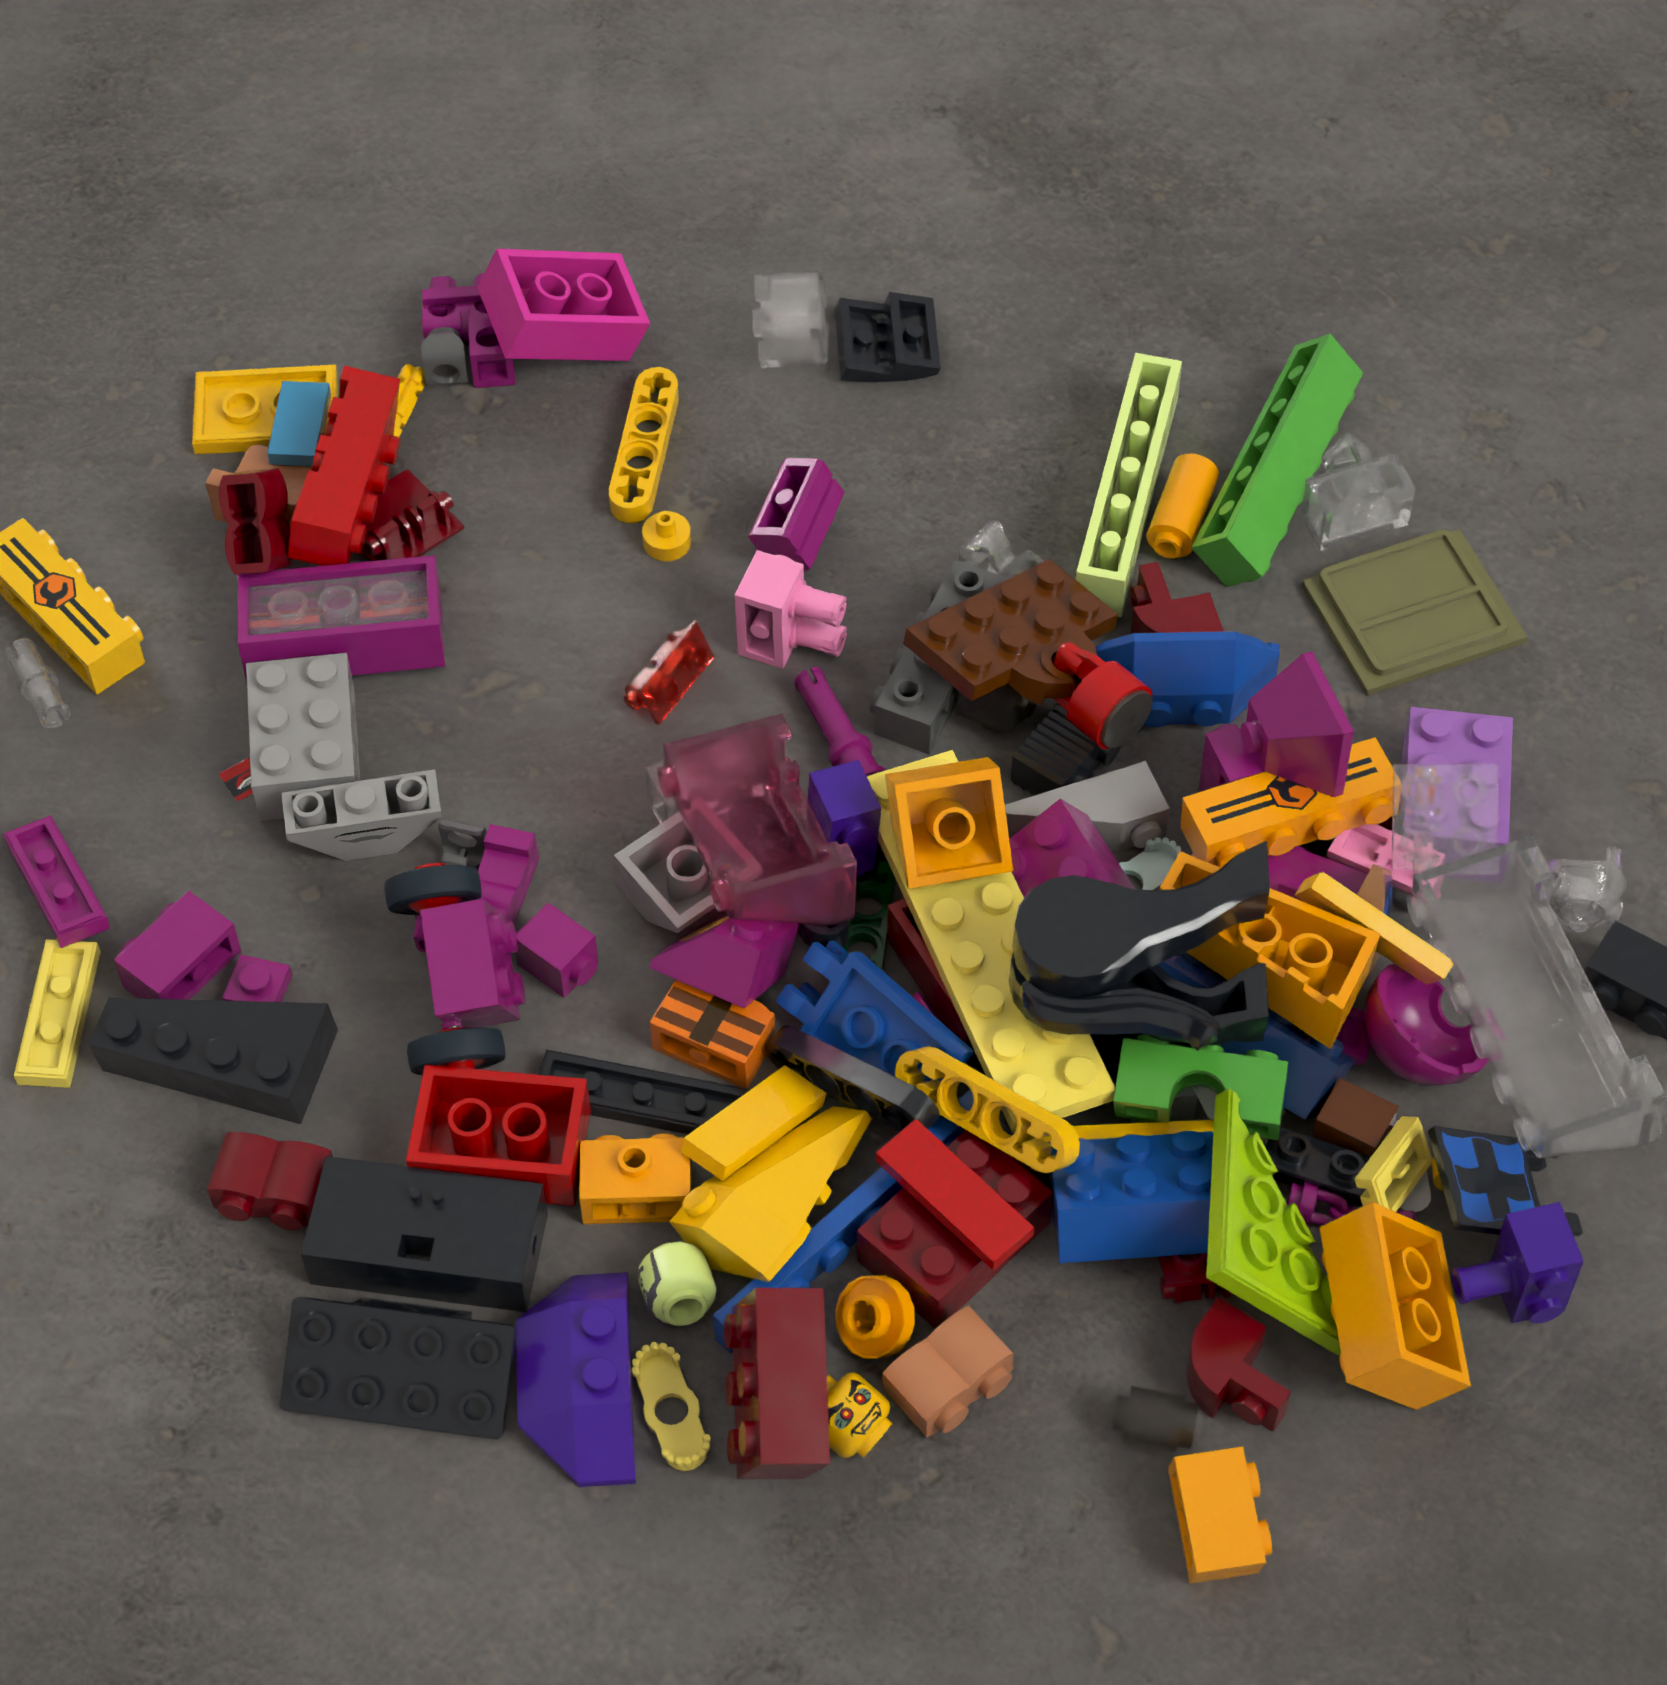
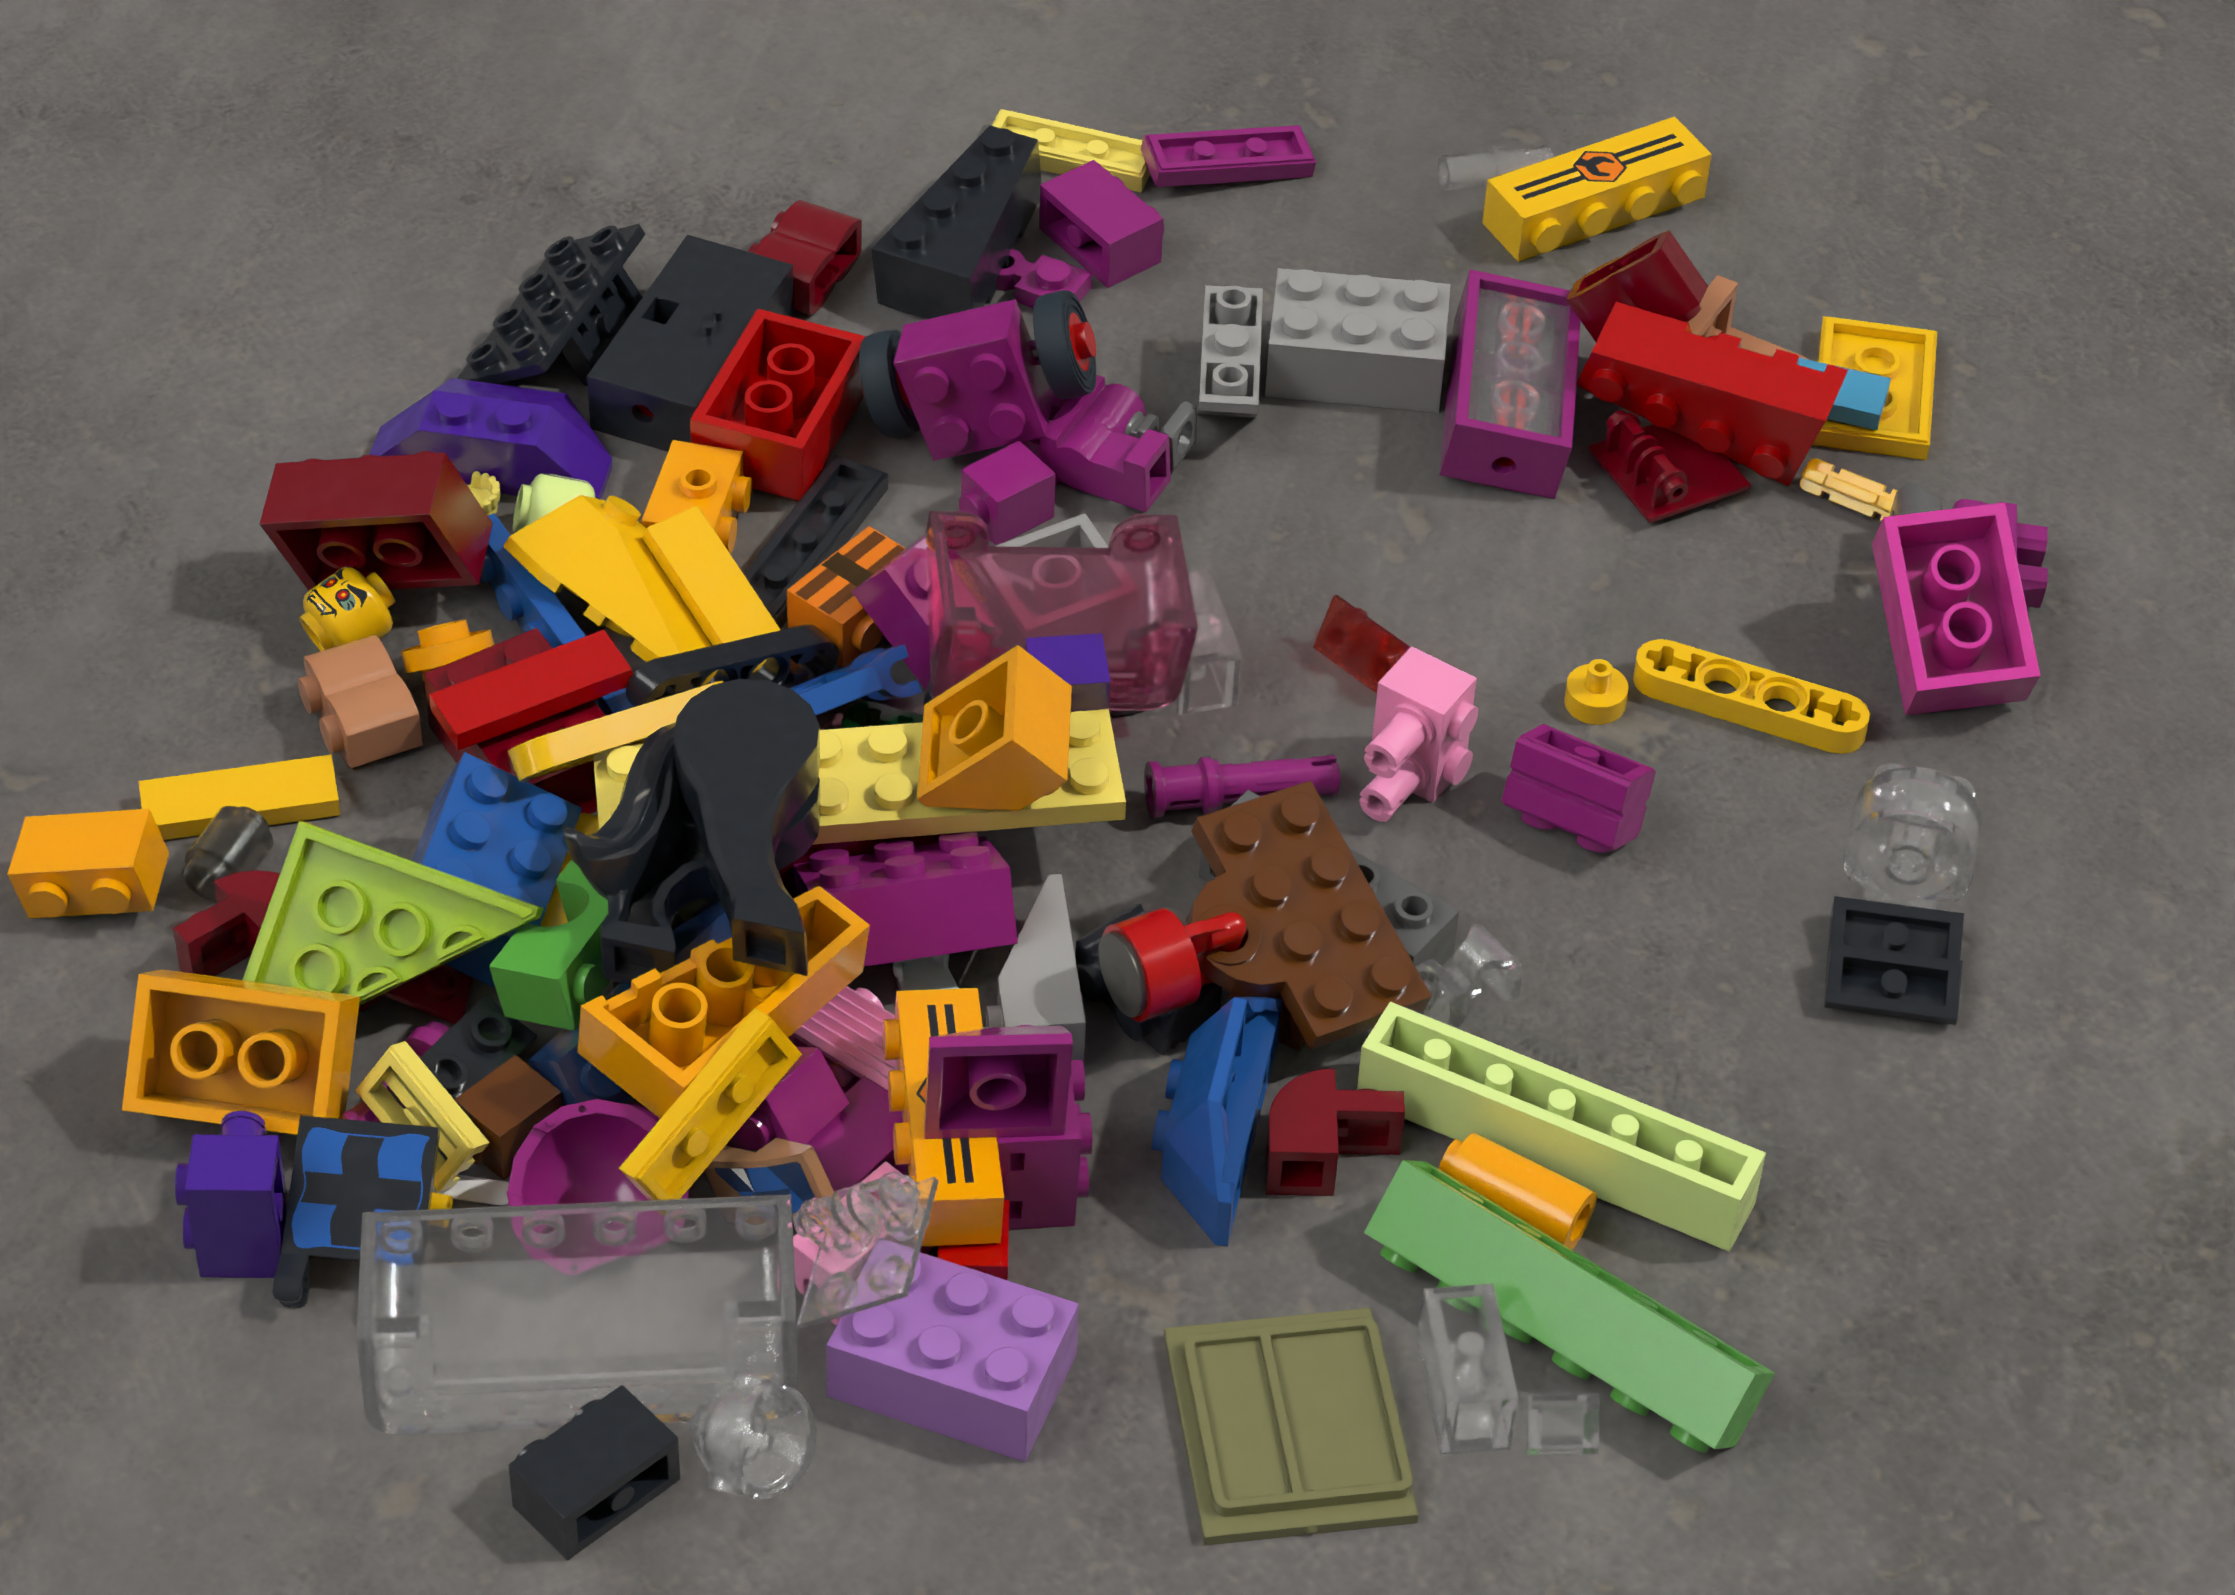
camera: 100 degrees right, 10 degrees down
(1079, 1443) = (276, 790): none -> yellow tile

